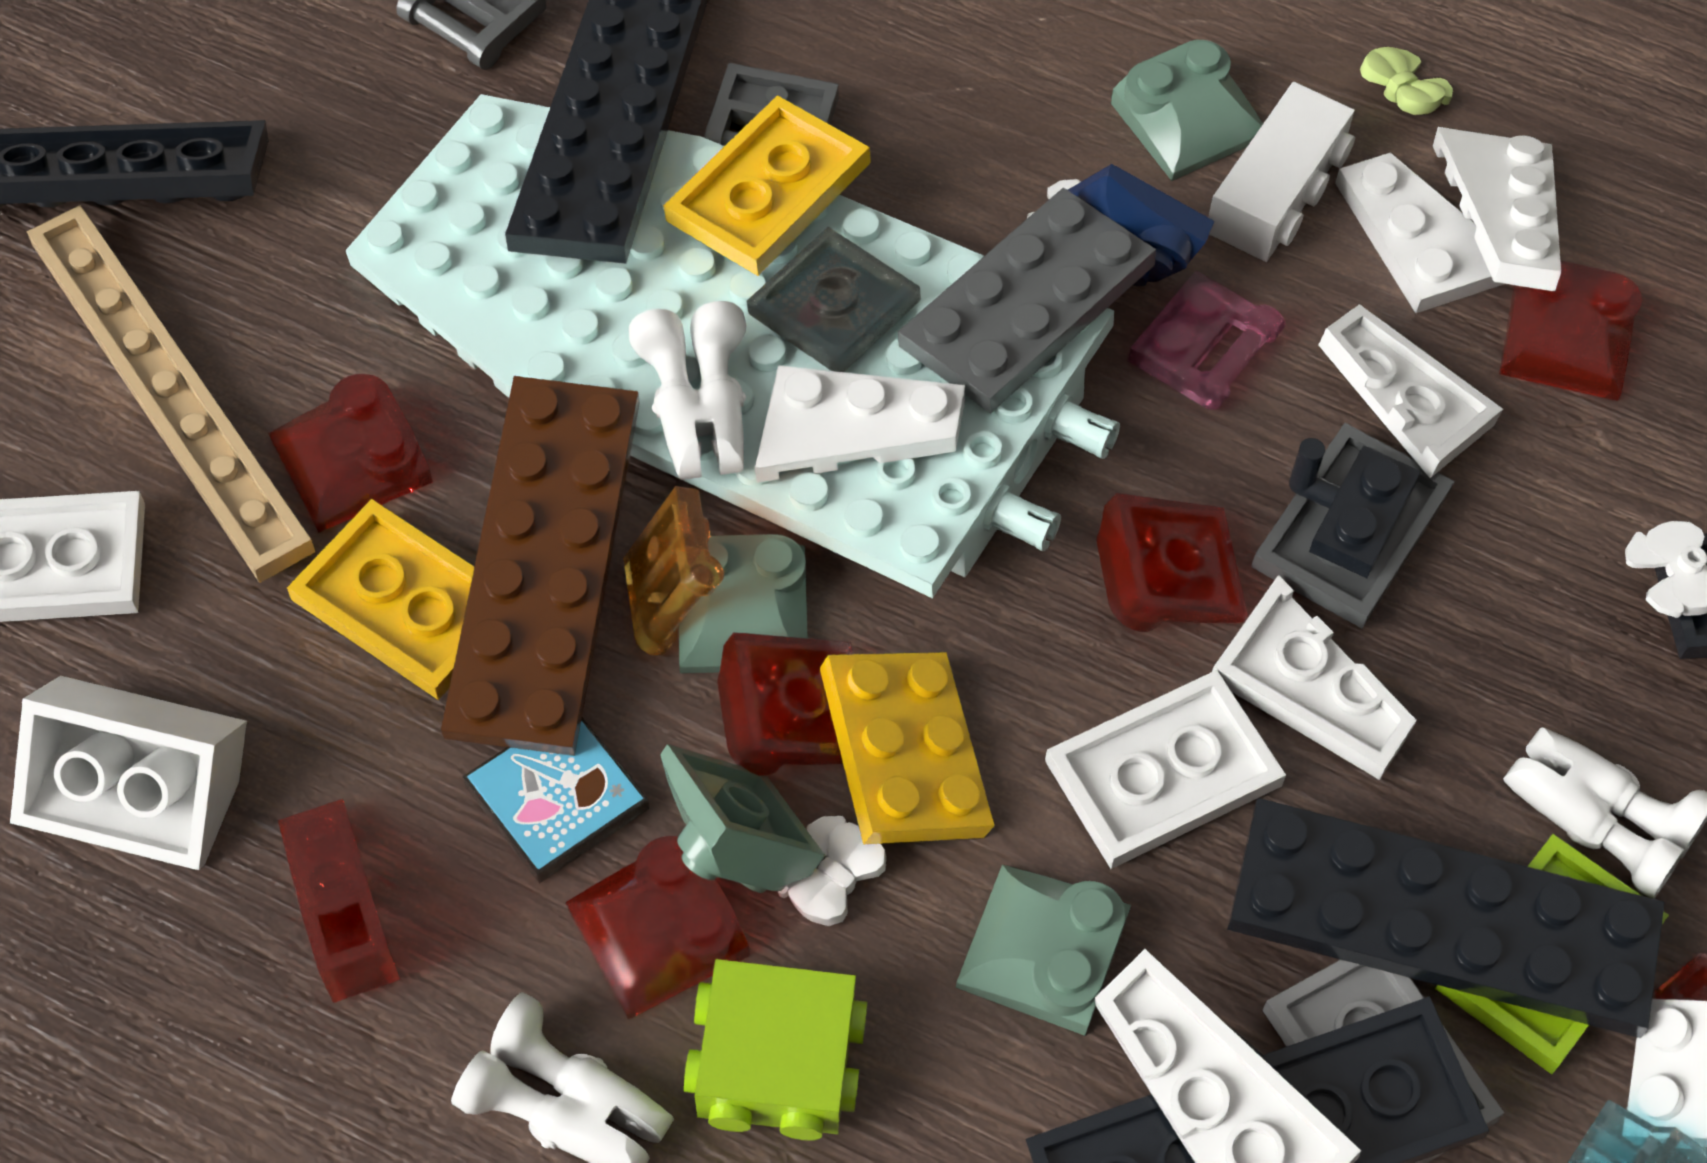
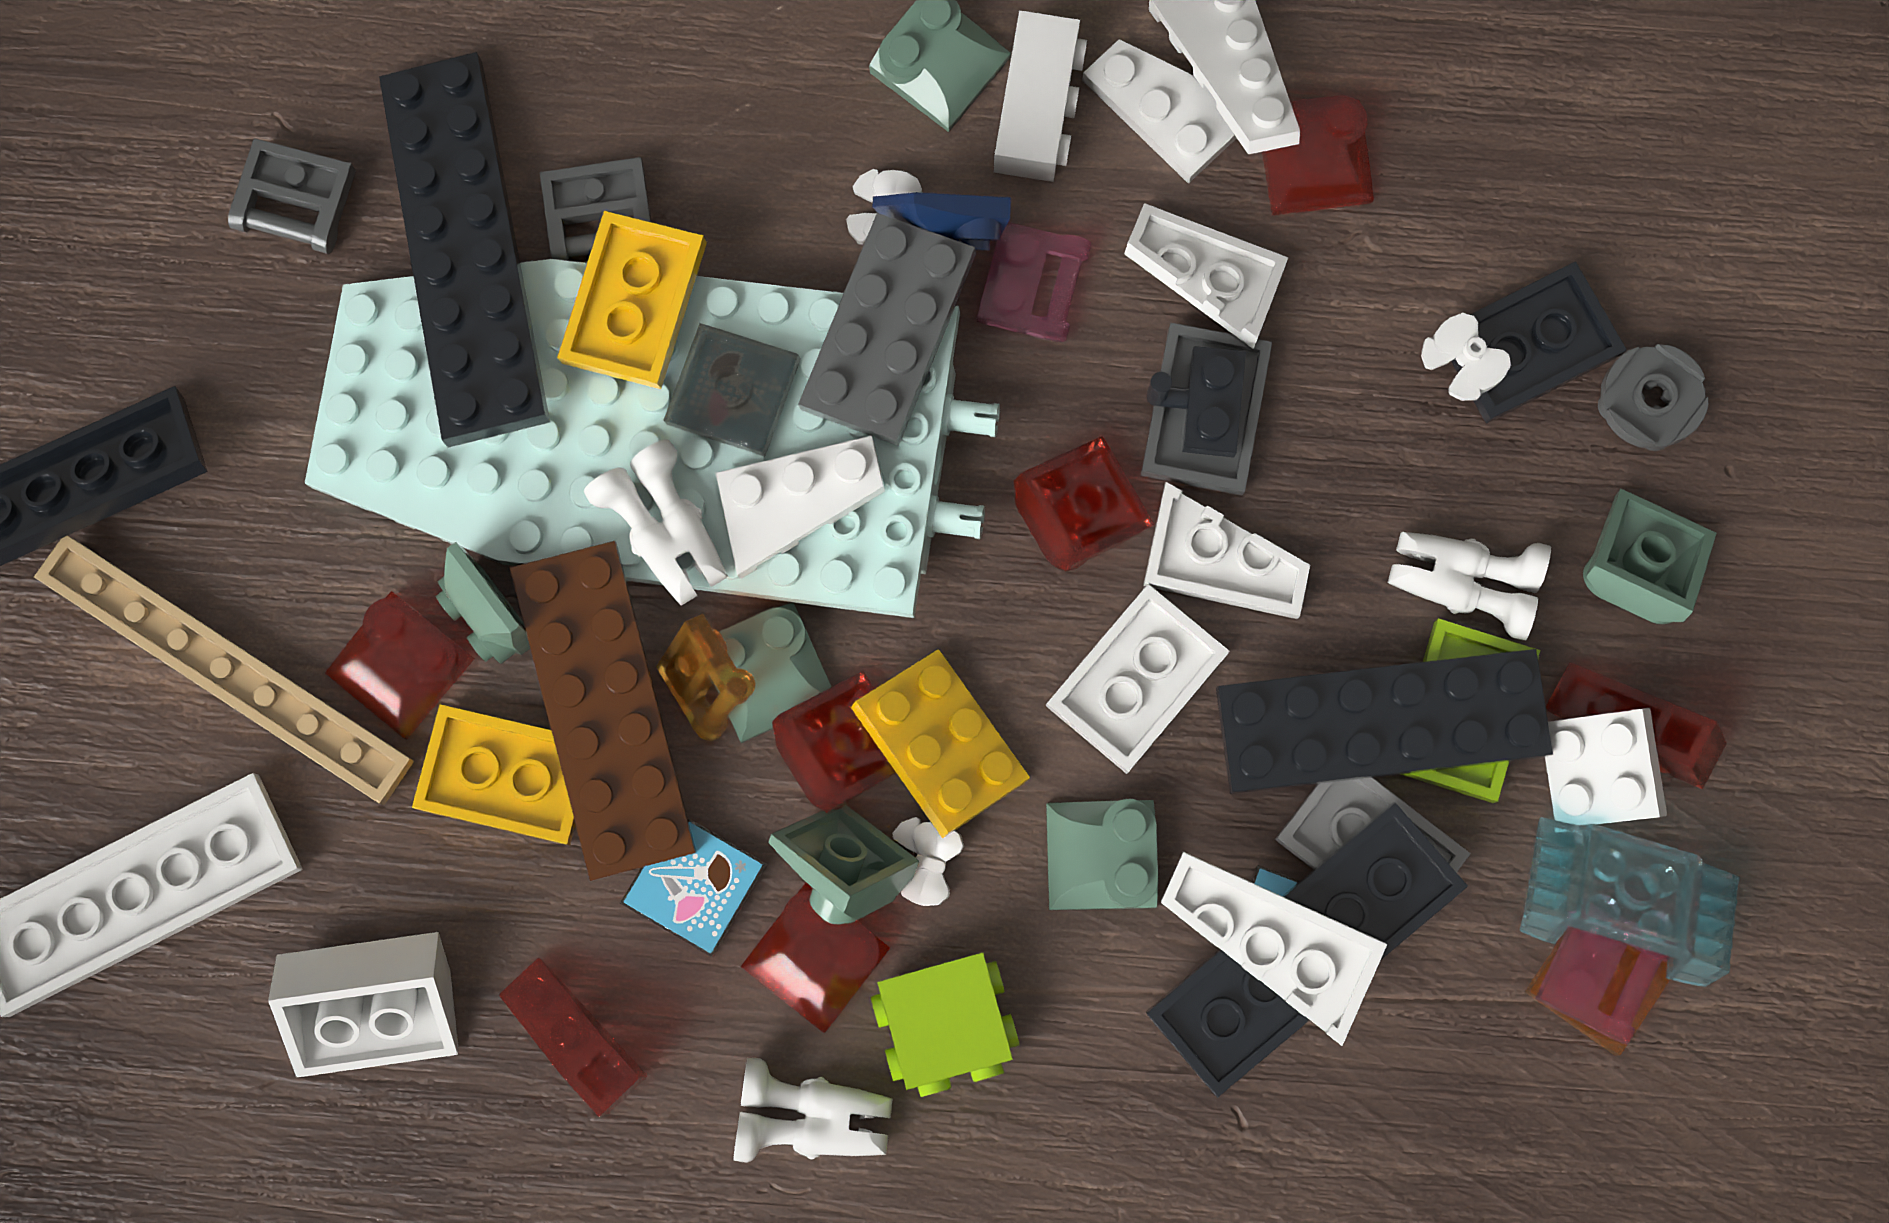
camera: 20 degrees left, 20 degrees up
(464, 414) = (475, 597): none -> sand green slope

